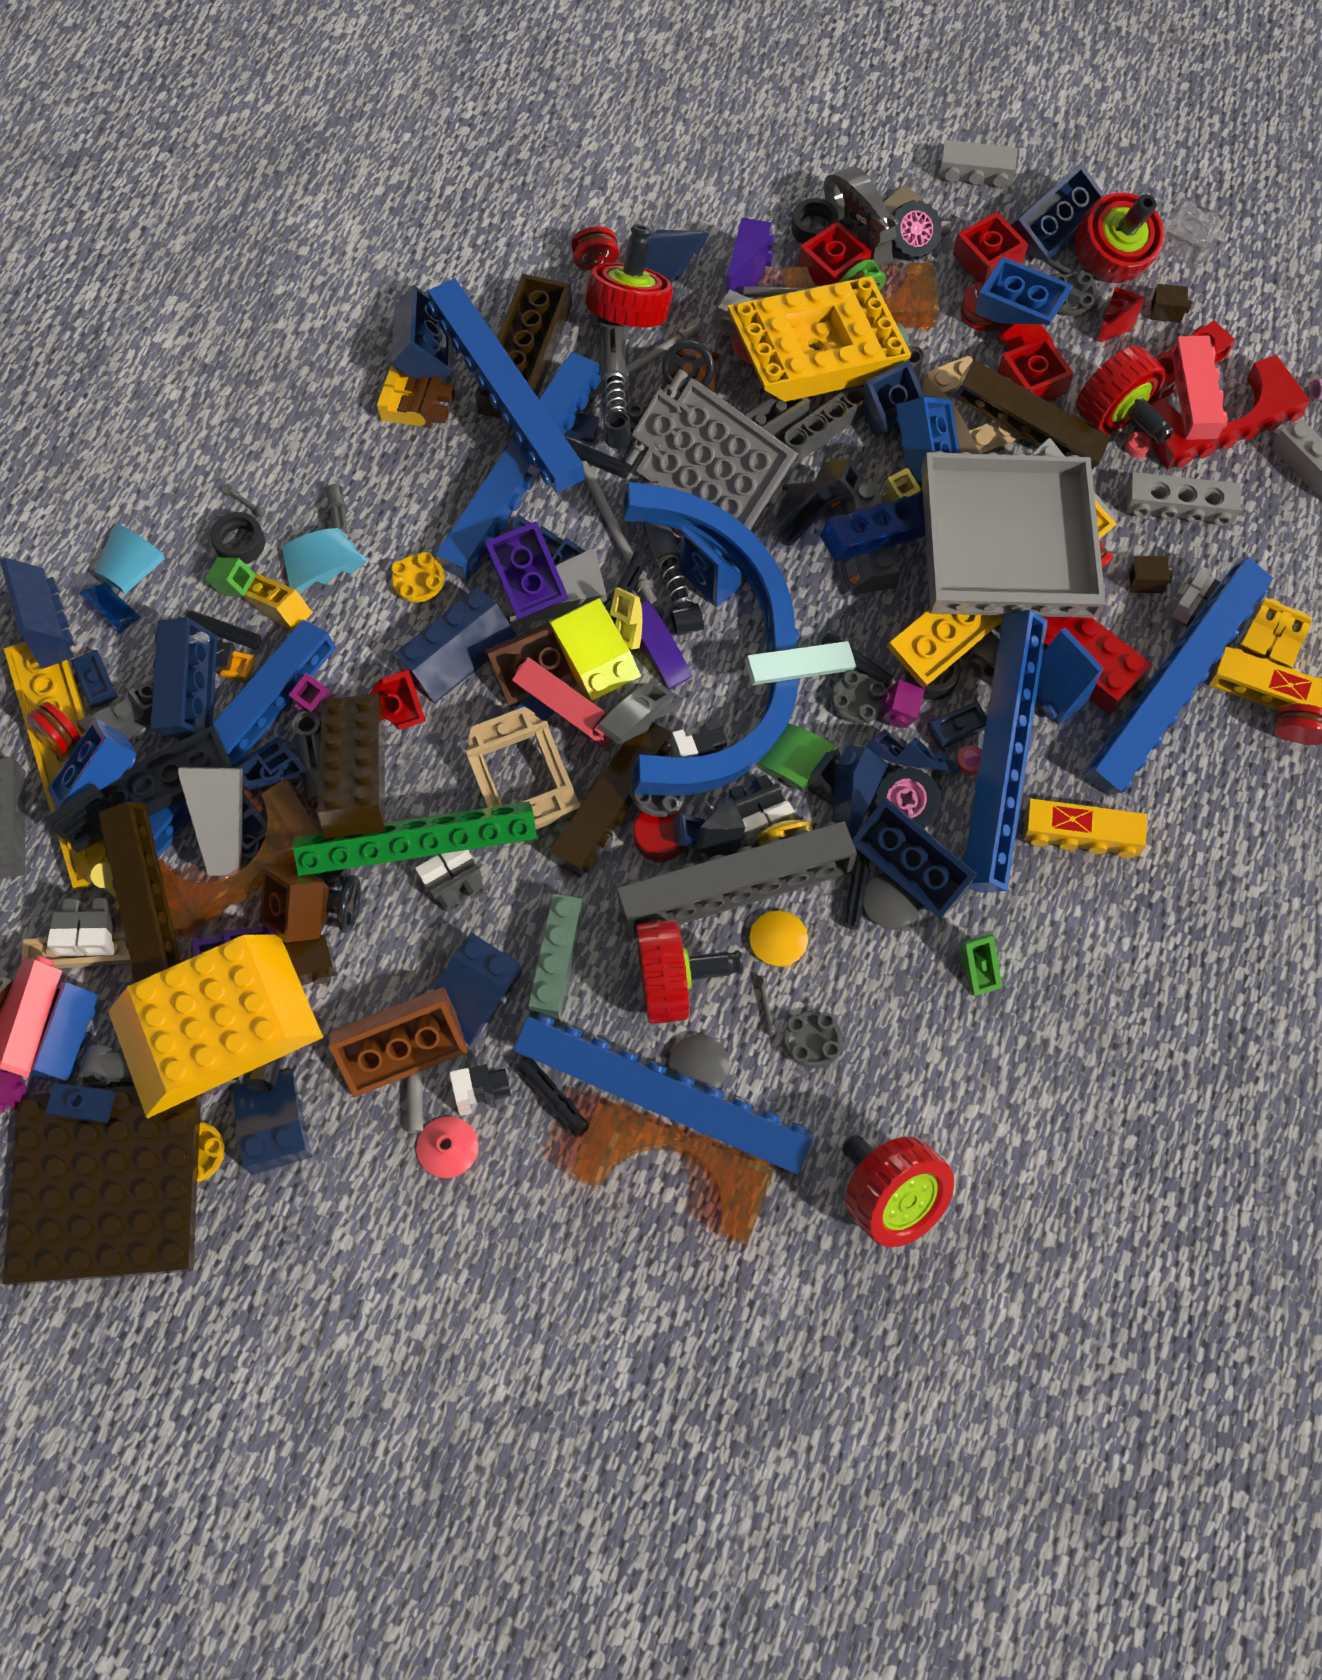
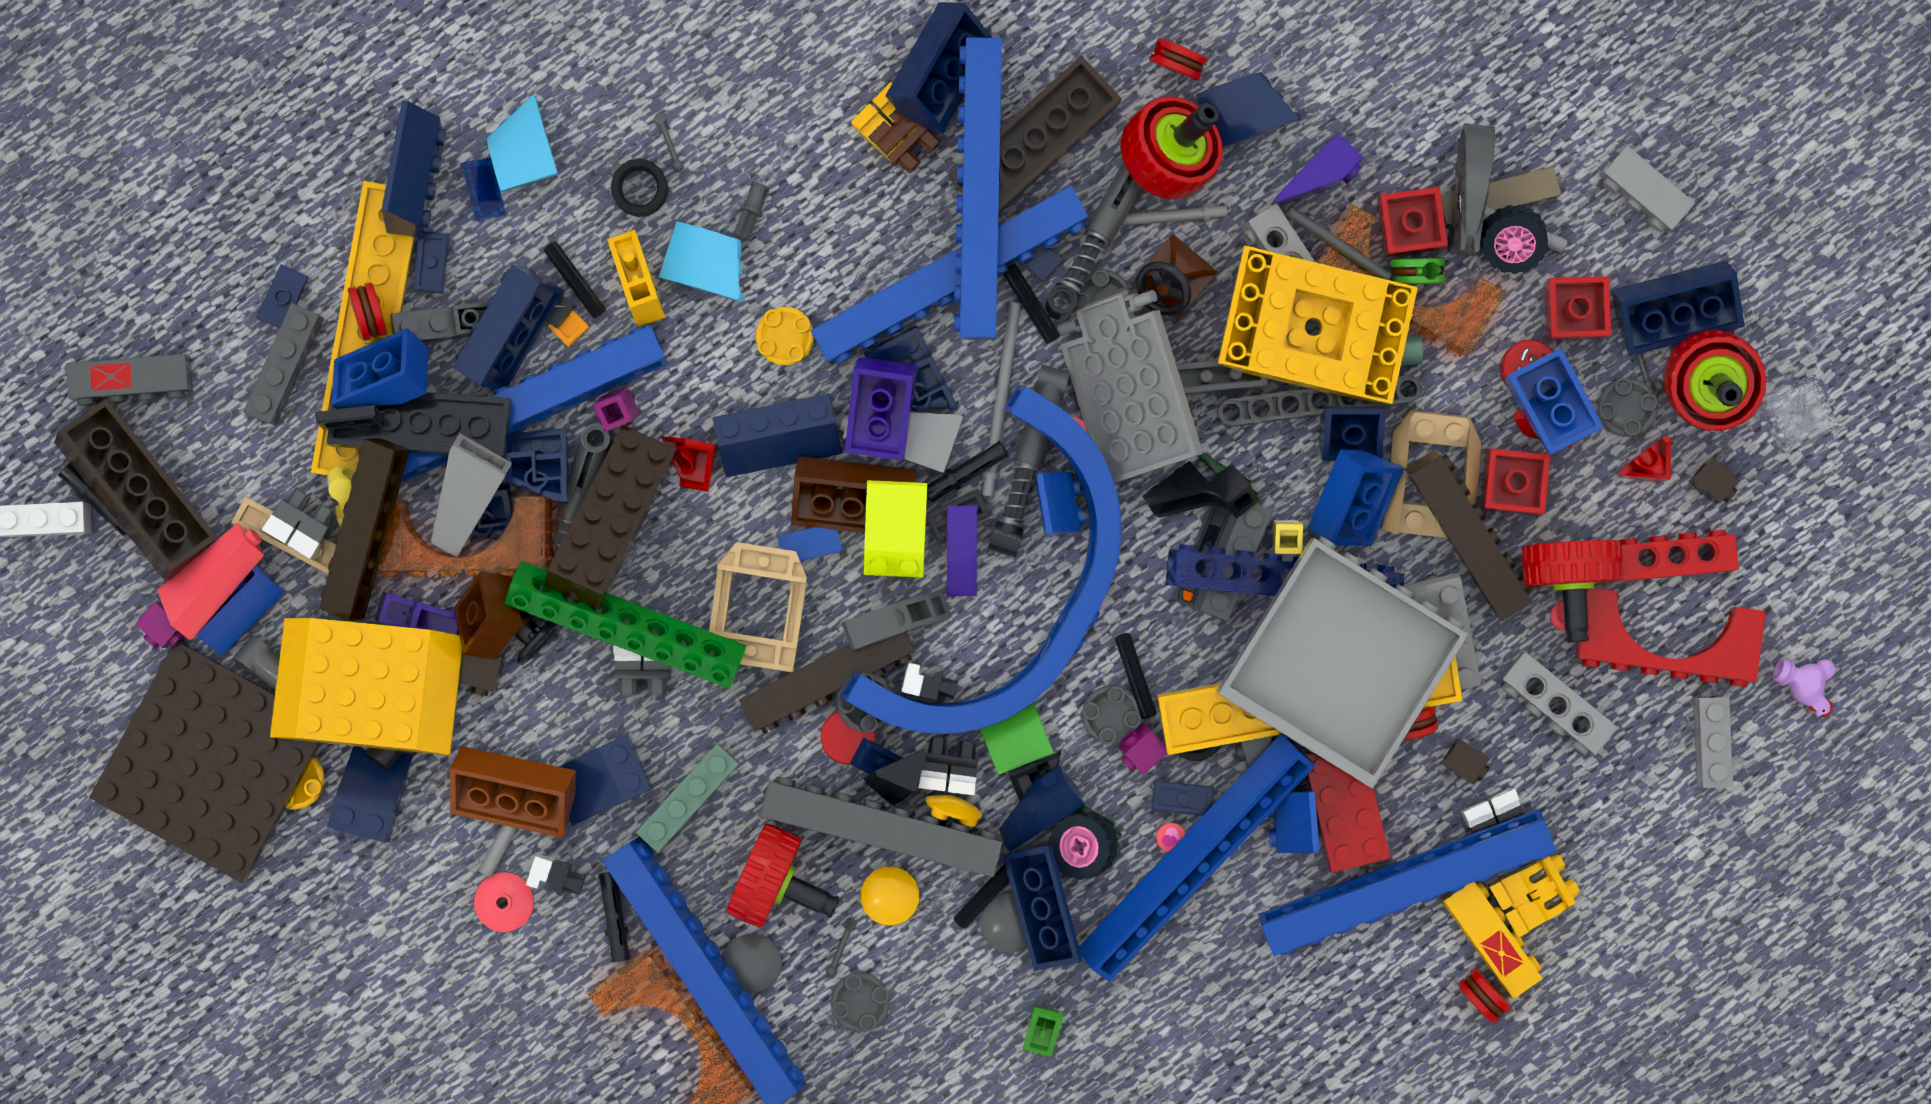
camera: 30 degrees right, 20 degrees up
(80, 1103) = (223, 686): dark blue plate -> none
(230, 577) = (609, 232): bright green brick -> none
(562, 700) = (837, 564): coral slope -> none
(628, 615) = (942, 518): light yellow slope -> none
(799, 663) = (1073, 657): light aqua tile -> none
(812, 207) = (1428, 135): black tyre -> none
(912, 755) = (1110, 804): dark blue slope -> none
(1085, 828) = (1222, 965): yellow brick -> none
(1198, 387) = (1651, 605): coral brick -> none

